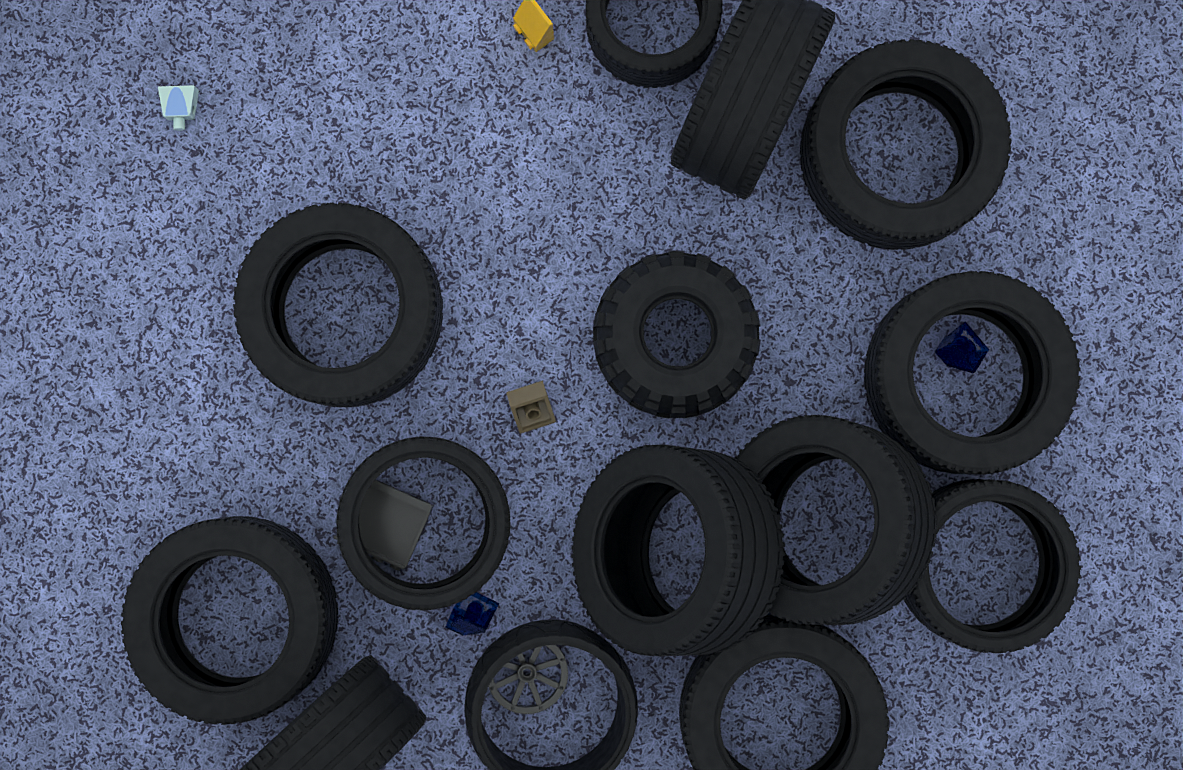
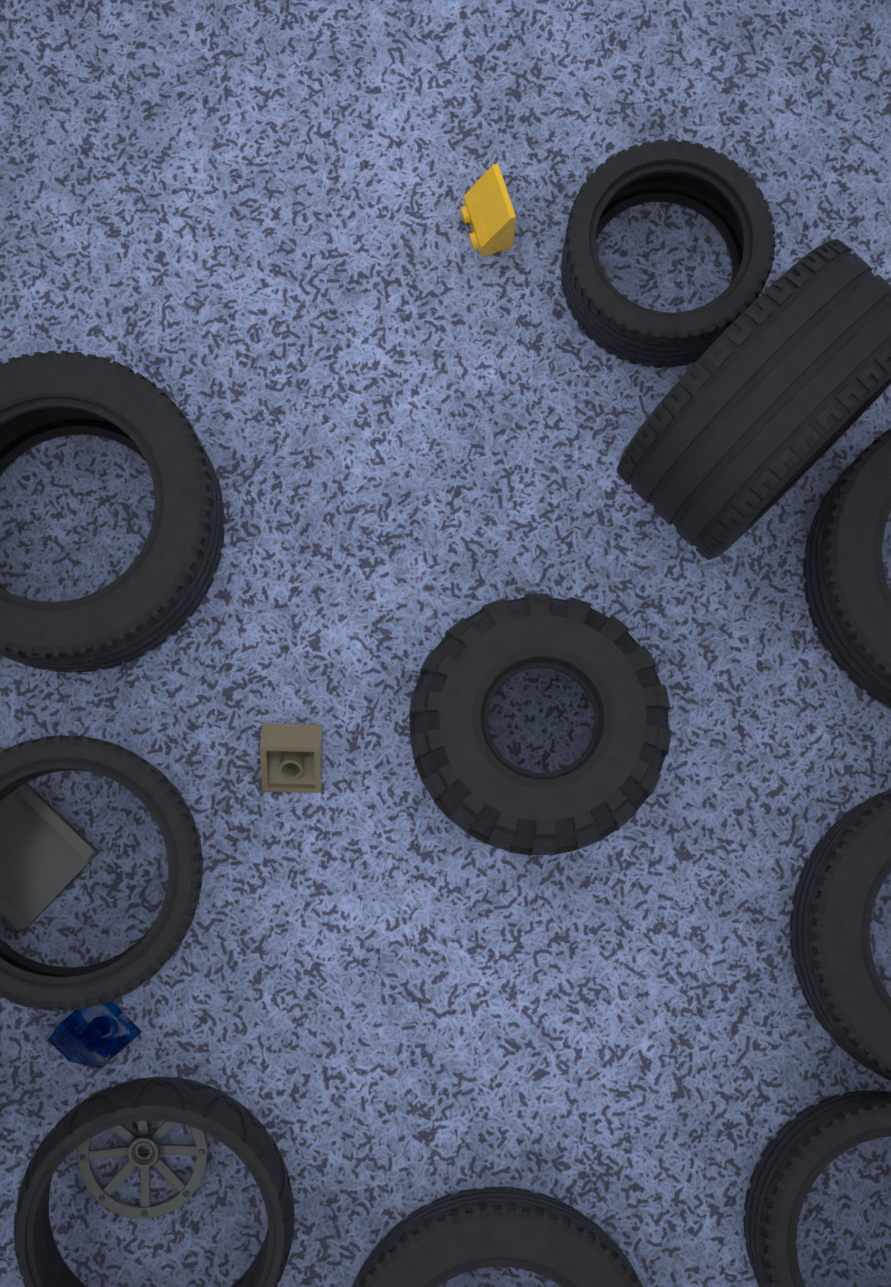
camera: 15 degrees right, 5 degrees down
(739, 561) = (518, 1084): black tyre -> none
(902, 516) = (549, 1063): black tyre -> none

